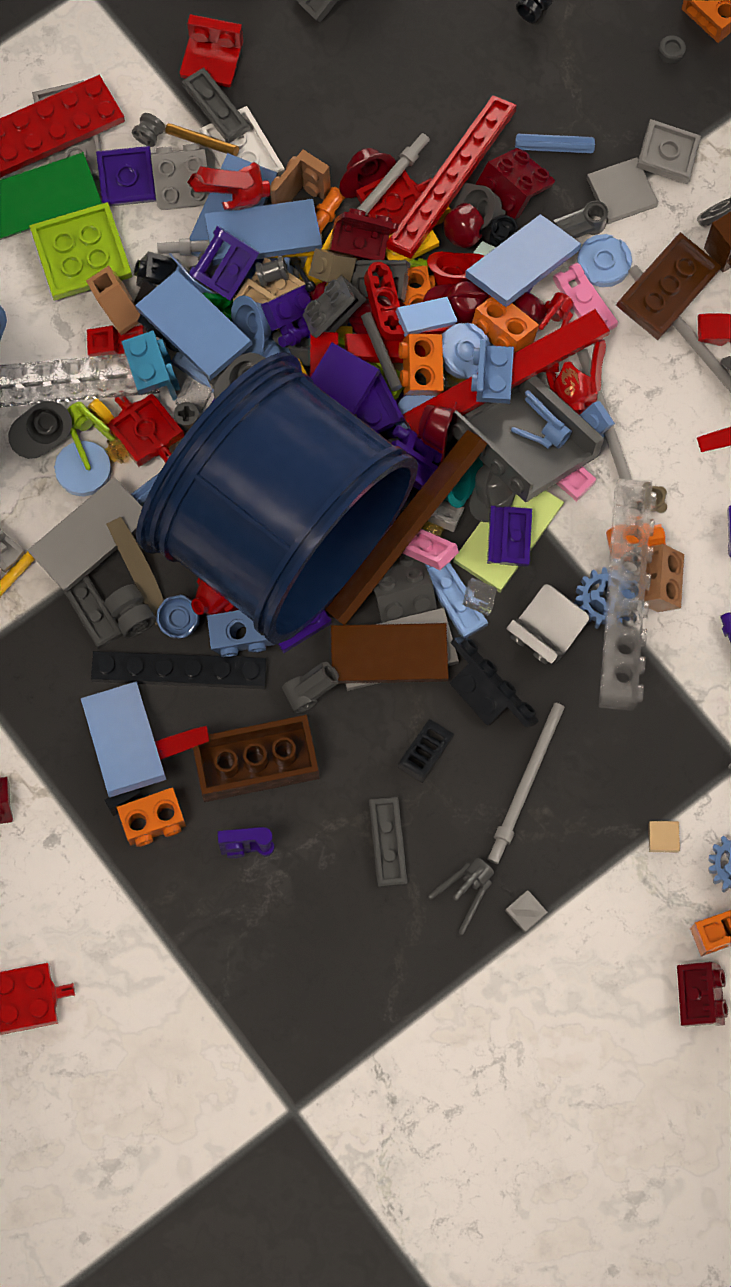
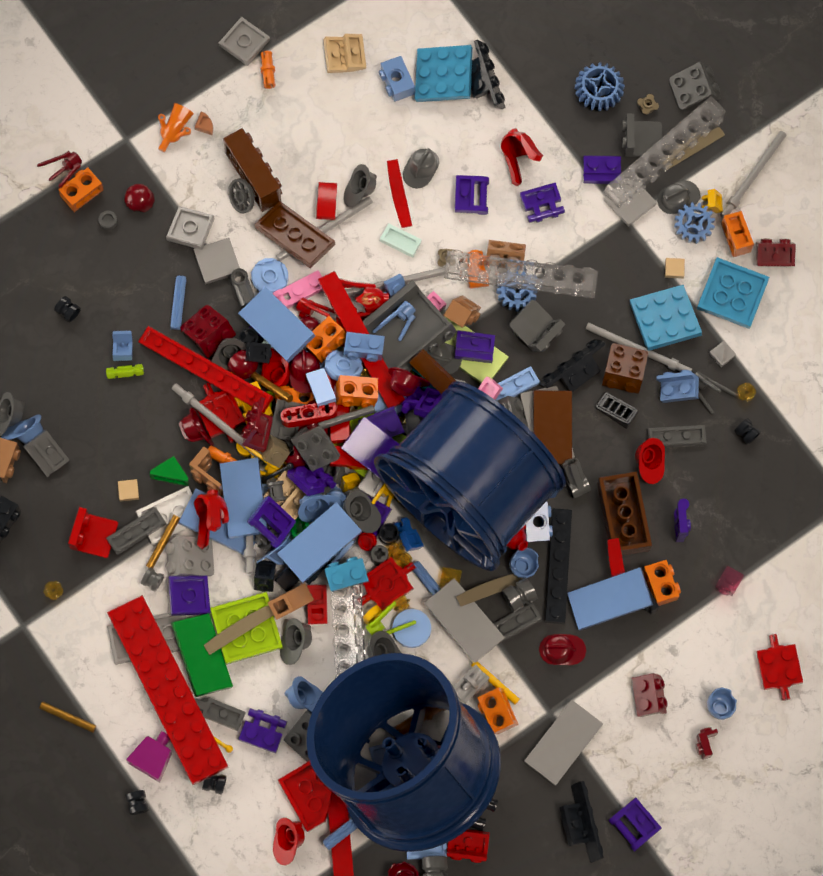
camera: 90 degrees left, 0 degrees up
(52, 679) = (562, 649): none -> dark red piece
(62, 315) = (295, 639): none -> dark grey piece
(74, 235) = (238, 629): none -> dark tan sticker
(133, 20) = (58, 590): none -> clear yellow plate
(157, 921) = (729, 581): none -> clear pink bracket
(203, 397) = (367, 541): none -> red plate
(276, 96) = (128, 490): none -> tan tile
(304, 138) = (170, 472): none -> green slope
(341, 798) = (651, 460): none -> red piece
(398, 948) = (747, 431): none -> black wheel
(427, 259) = (272, 387): none -> pearl gold bar
(448, 82) = (125, 371): none -> lime axle
(463, 839) = (678, 386): none -> medium blue bracket
(468, 941) = (746, 387): none -> clear yellow plate
(477, 236) = (258, 352): none -> black bracket
(479, 596) = (513, 369): clear tile -> none
(483, 75) = (122, 345): none -> medium blue bracket
(492, 758) = (625, 368): none -> reddish brown bracket
(562, 515) = (463, 311): none -> medium nougat brick
(579, 821) = (665, 317): none -> dark azure plate
(628, 927) = (733, 293): none -> dark azure plate
(675, 434) = (400, 240): none -> light aqua tile
(708, 86) = (139, 198): none -> dark red hair

